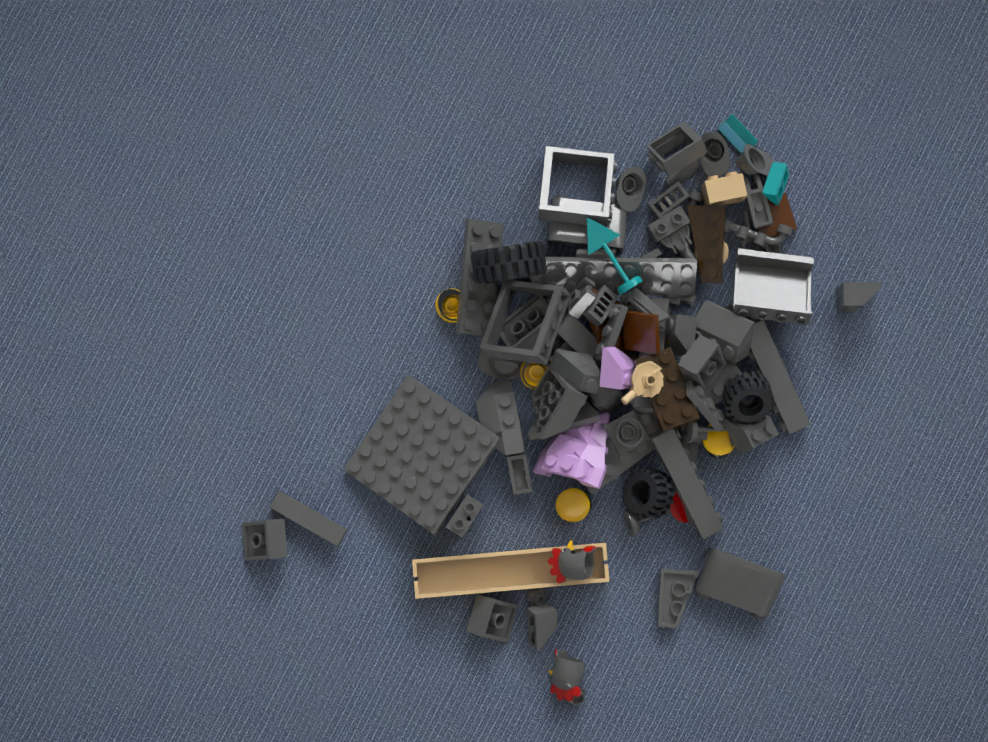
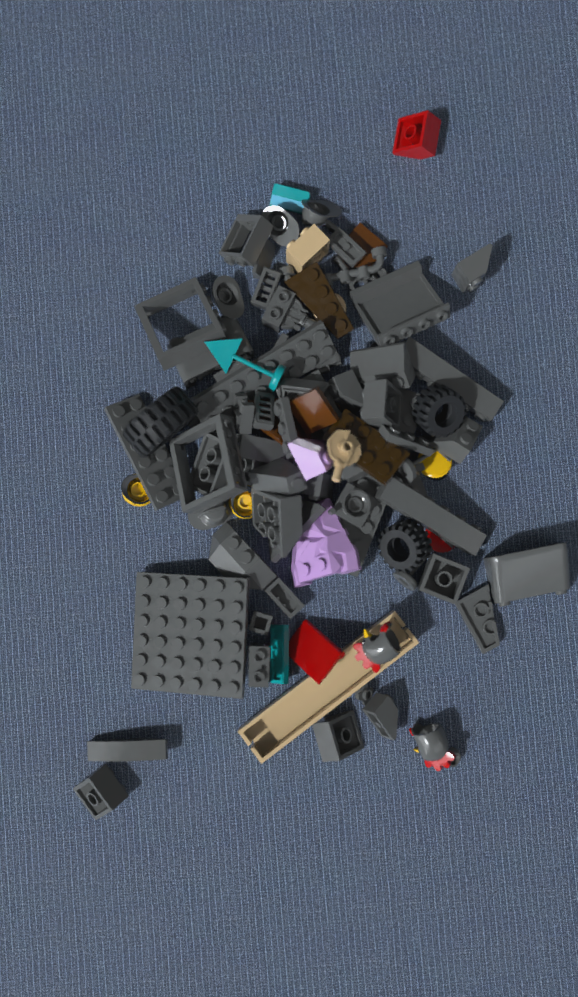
camera: 25 degrees left, 0 degrees up
(485, 518) = (279, 654): none -> teal plate
(486, 482) = (260, 622): none -> dark grey brick
(516, 533) = (314, 651): none -> red piece
(573, 505) = (346, 595): yellow piece -> none
(663, 542) = (443, 578): none -> dark grey brick
(776, 182) = (346, 217): teal slope -> none
(882, 148) = (417, 135): none -> red slope

